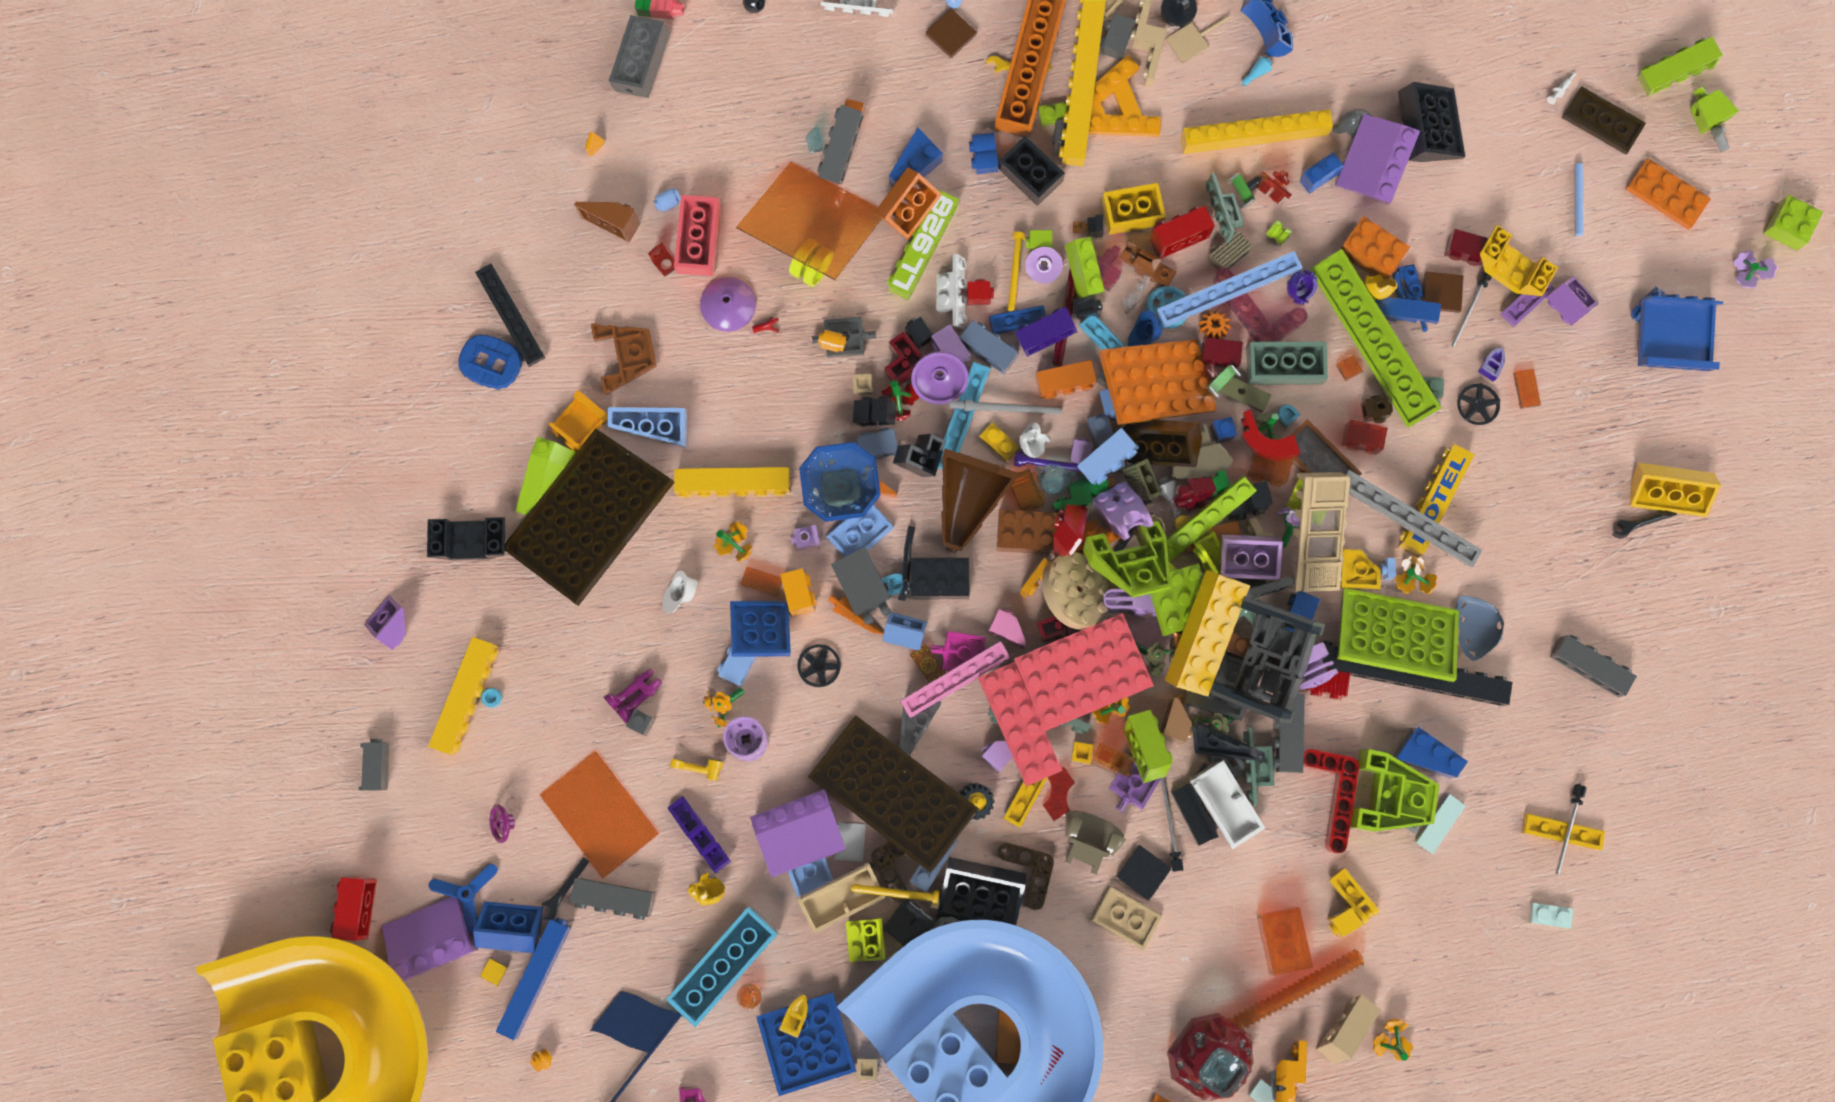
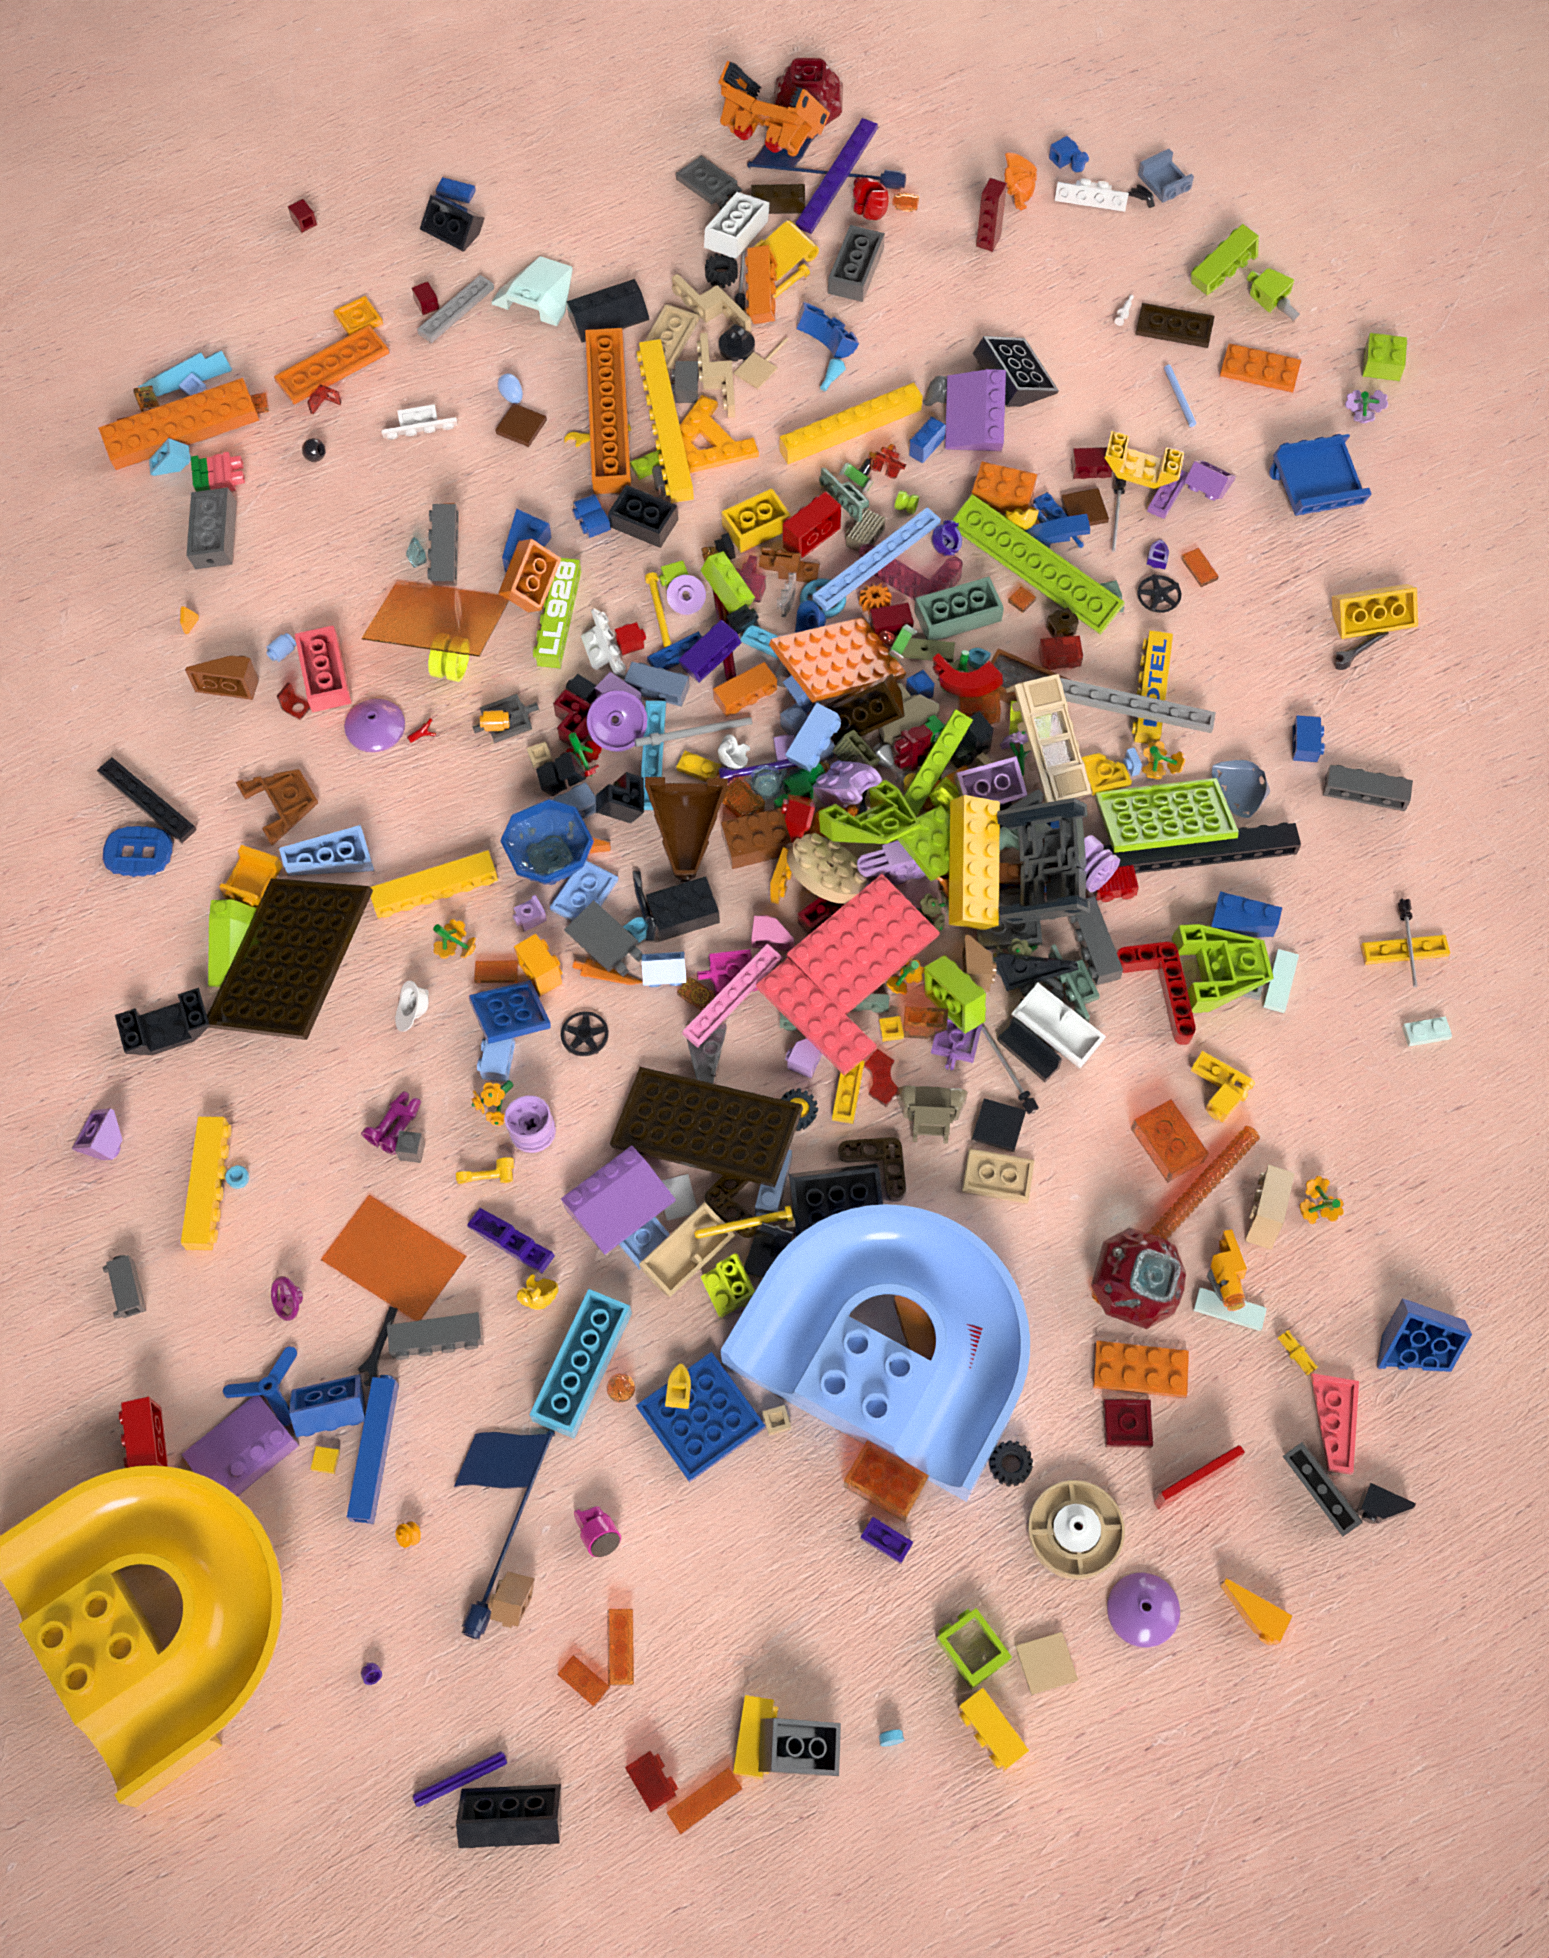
camera: 20 degrees left, 15 degrees down
(1557, 599) = (1307, 738): none -> blue brick

